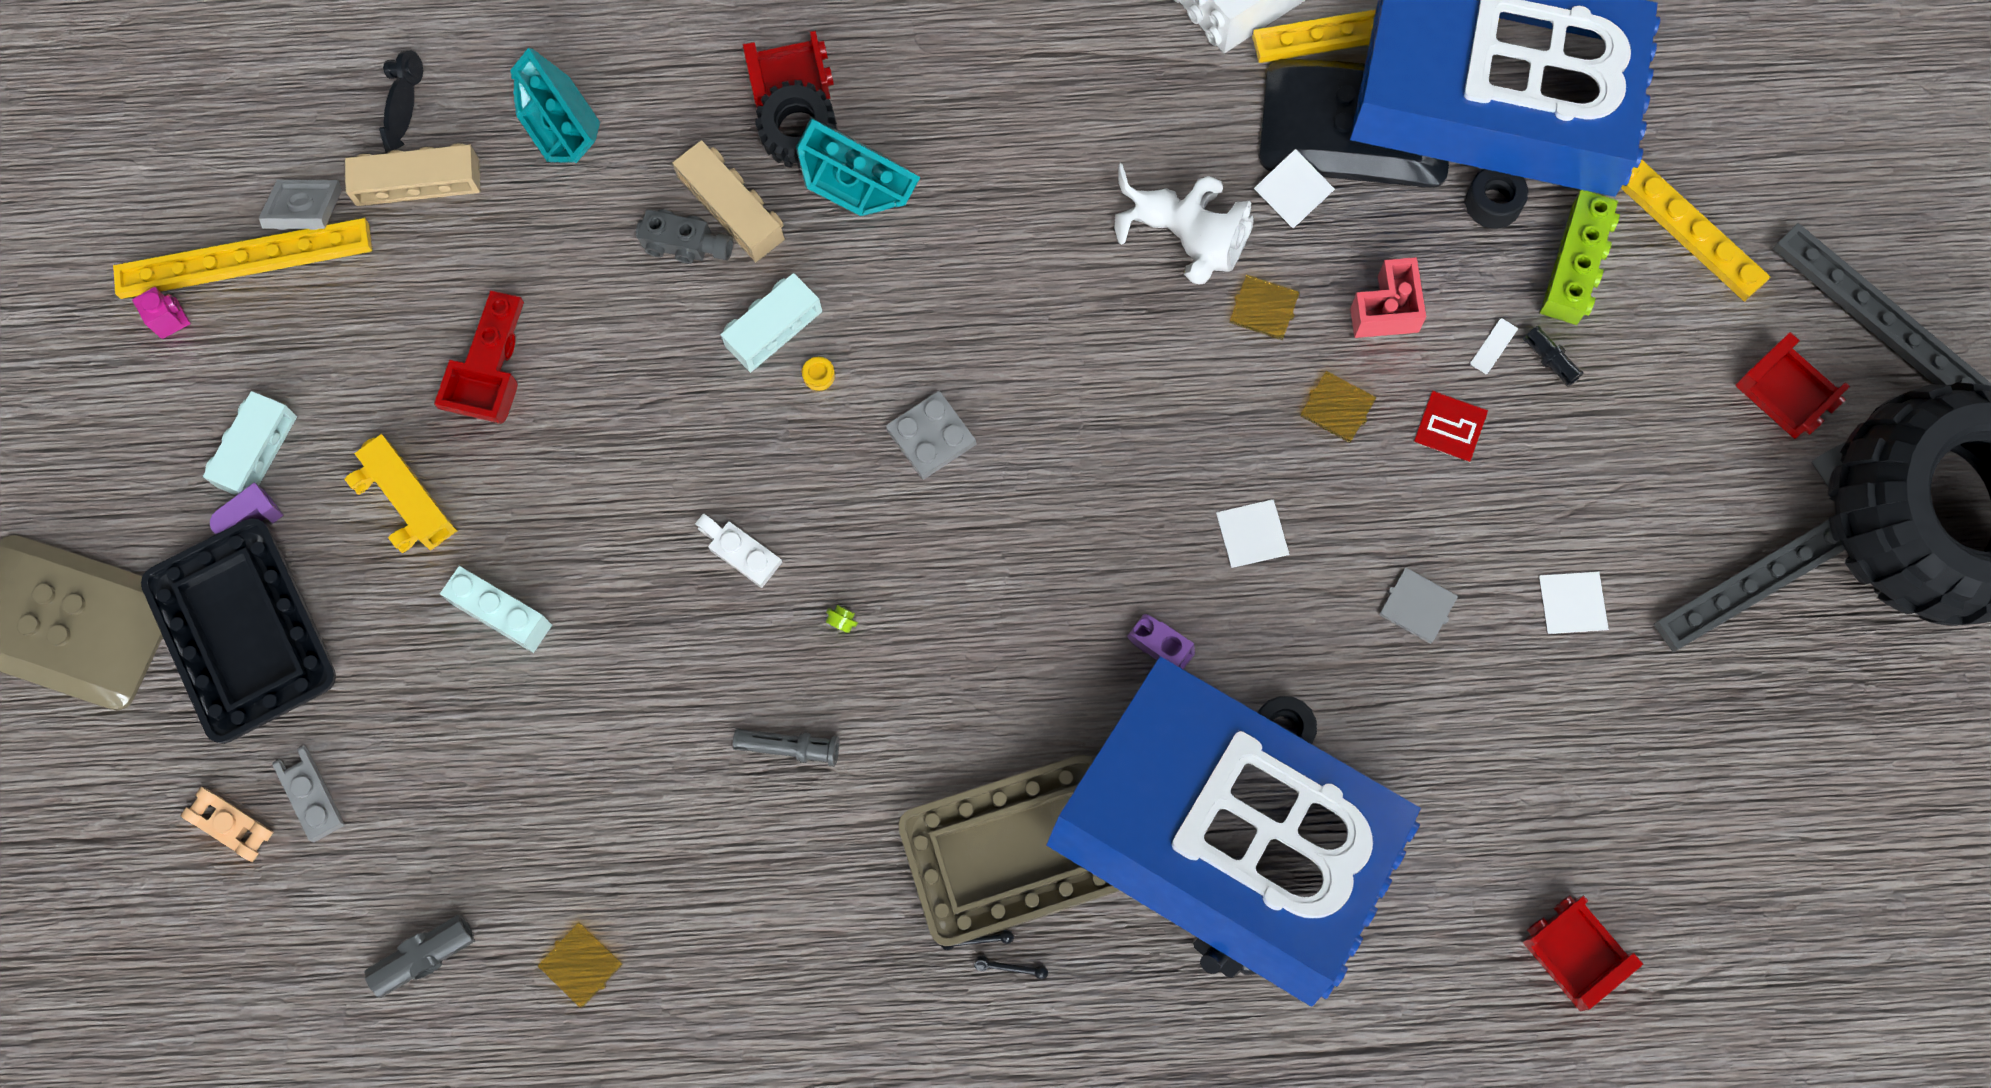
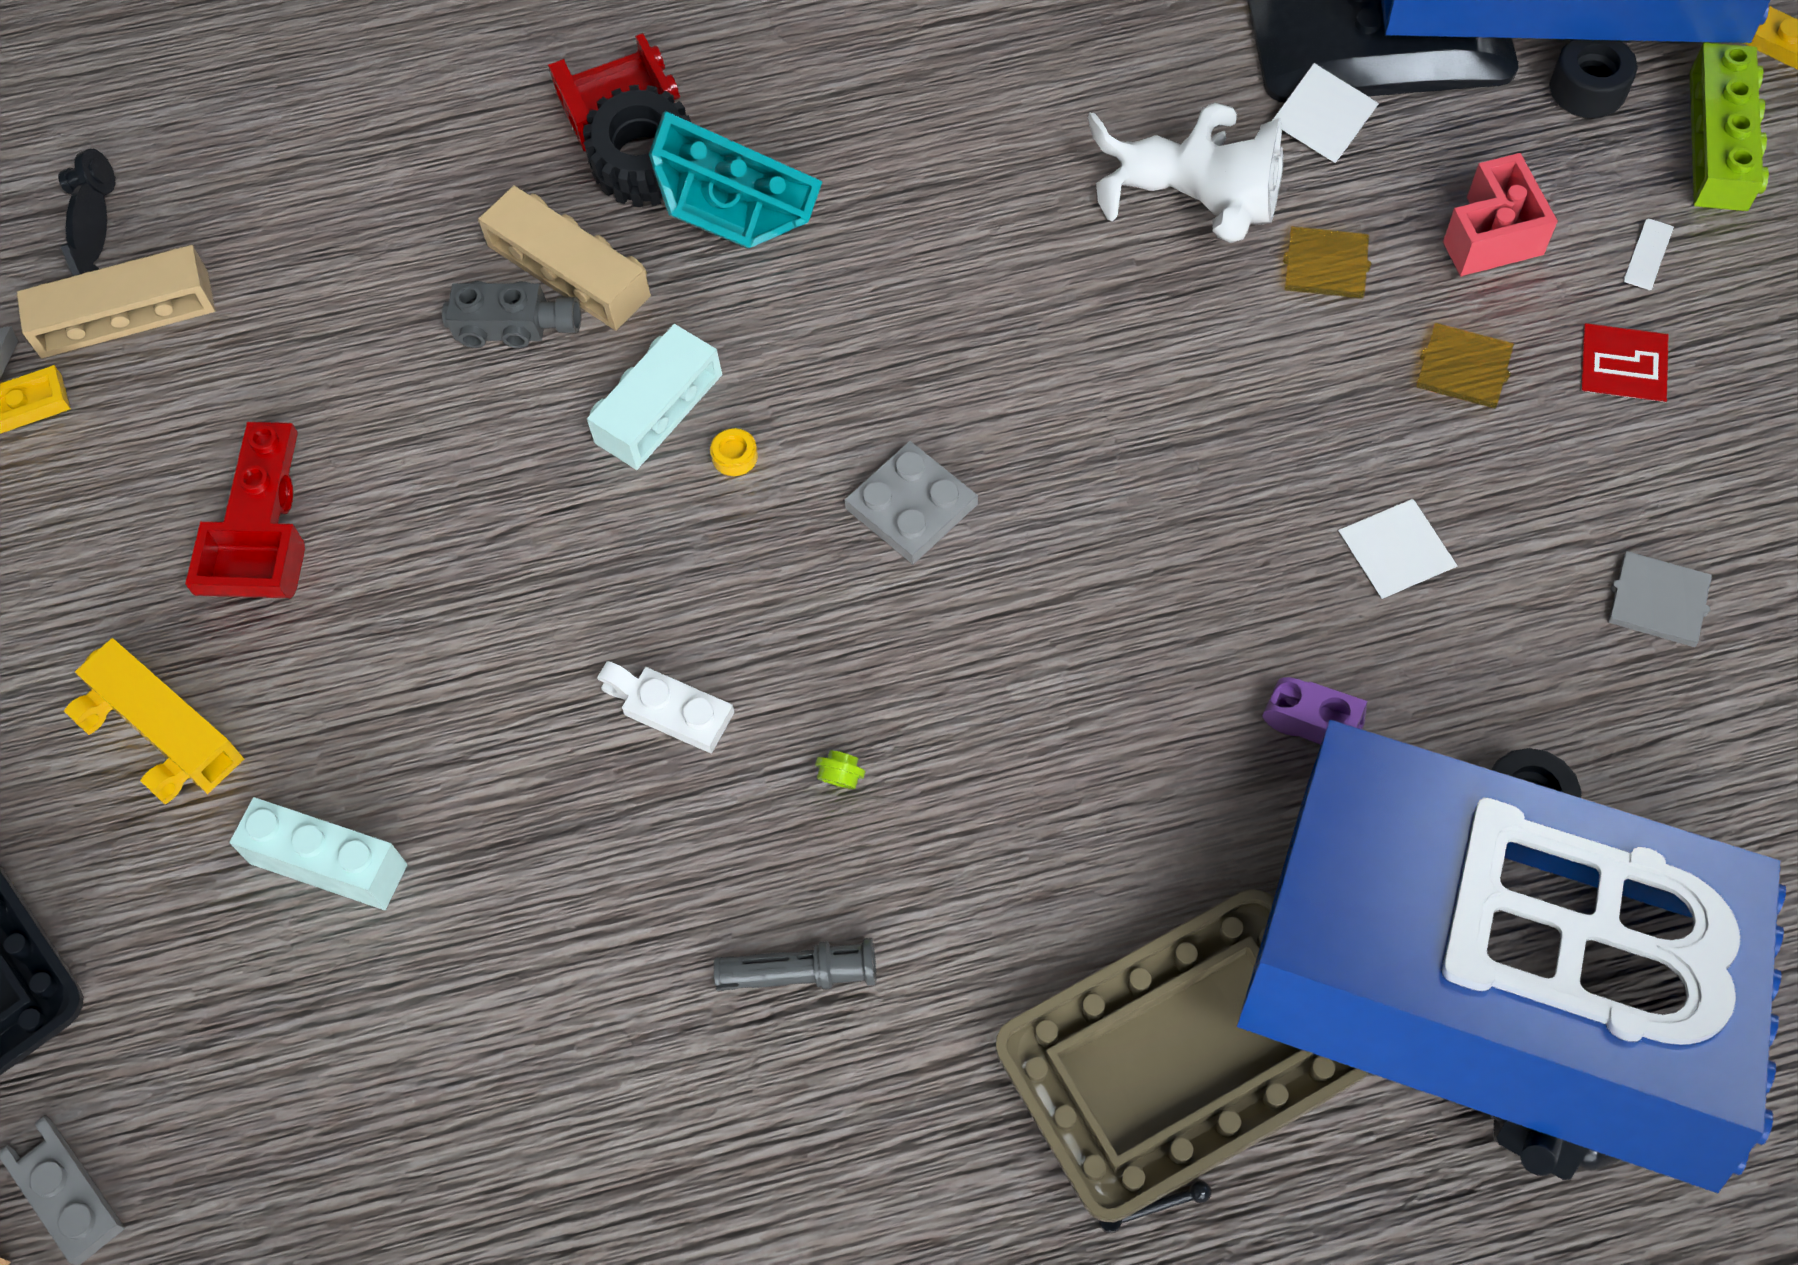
camera: 10 degrees left, 10 degrees down
(552, 109) = (298, 187): teal wedge -> none
(982, 964) = (1173, 1241): black hinge -> none
(1553, 356) = (1734, 249): black pin -> none

